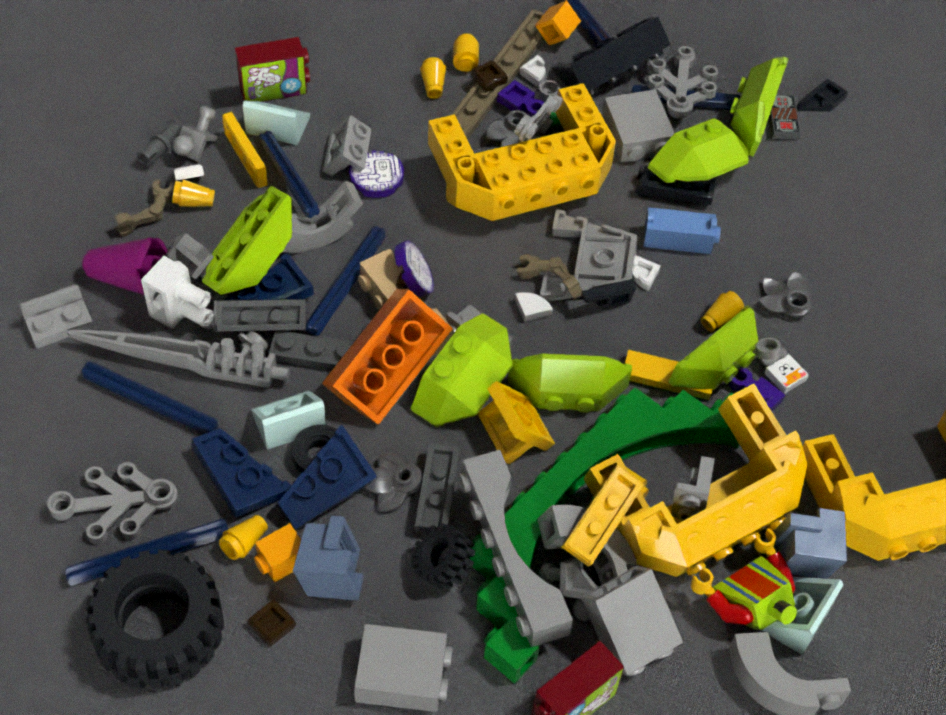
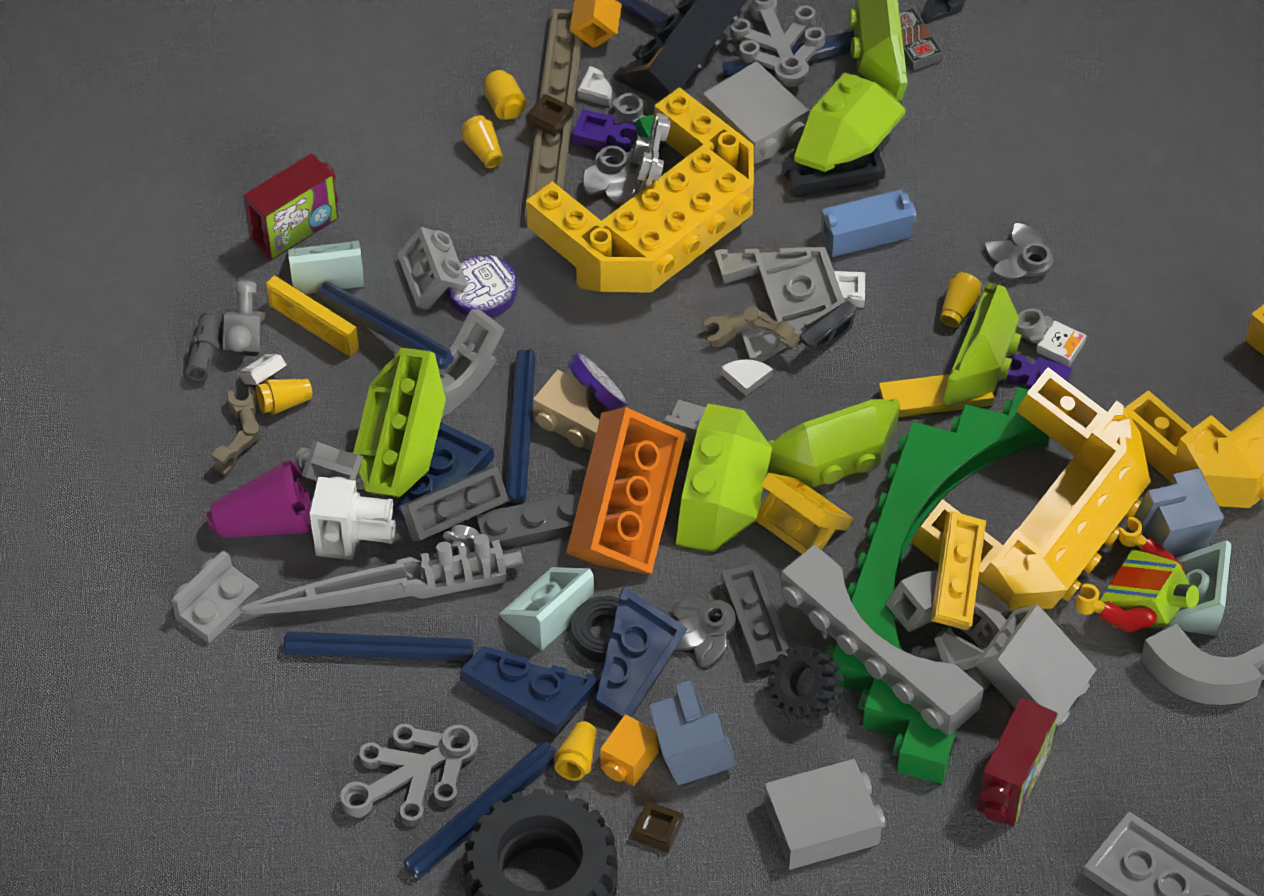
camera: 20 degrees left, 0 degrees up
(693, 497) = (1041, 512): light grey bracket -> none

